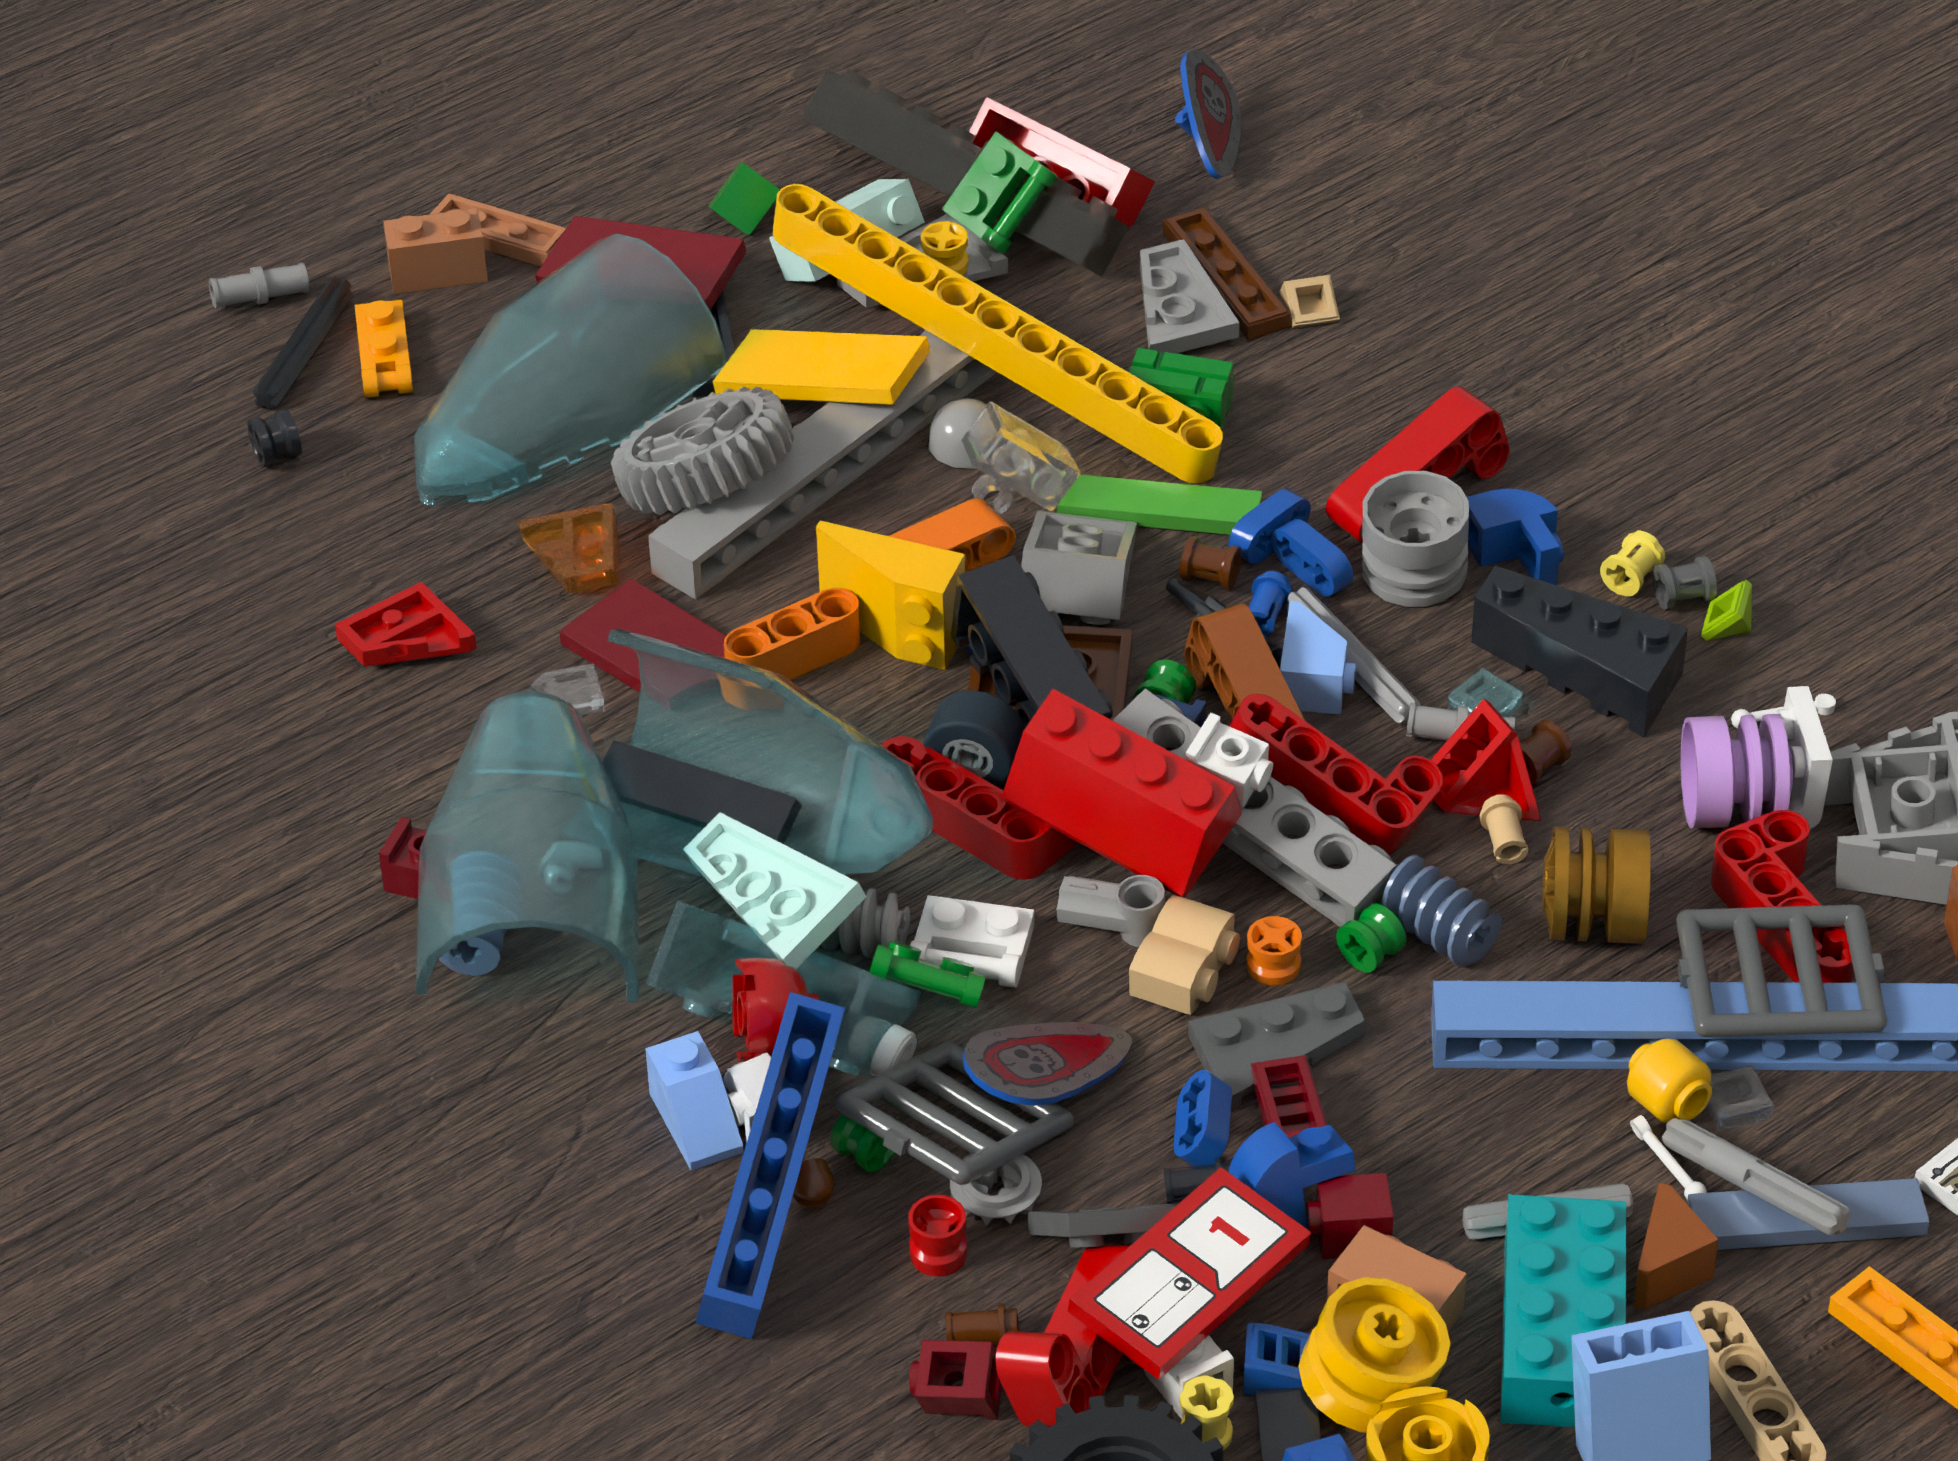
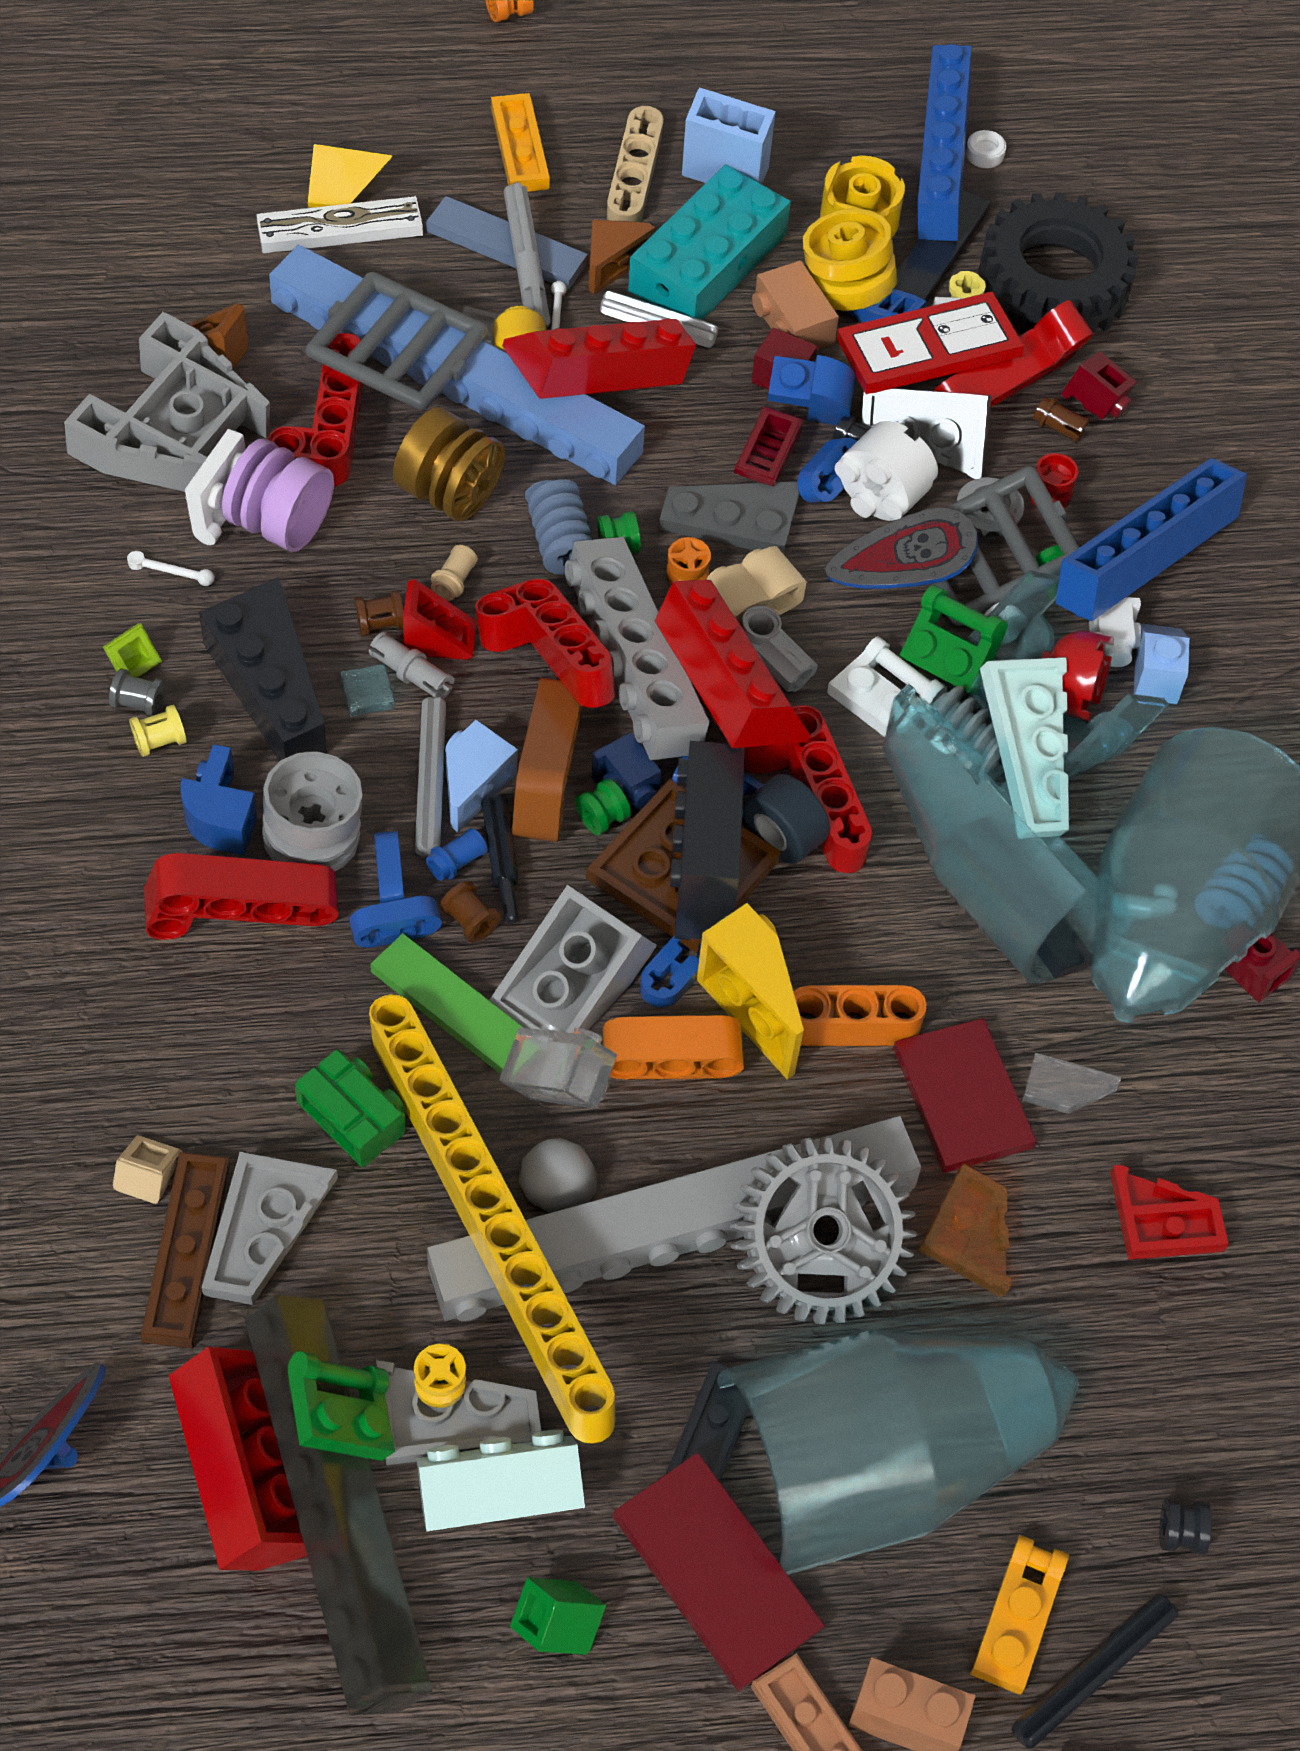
camera: 155 degrees left, 15 degrees up
(824, 365) = (652, 1285): yellow tile -> none
(1129, 1114) = (886, 471): none -> white brick
(1231, 757) = (642, 625): white brick -> none
(1558, 1075) = (602, 357): none -> red slope

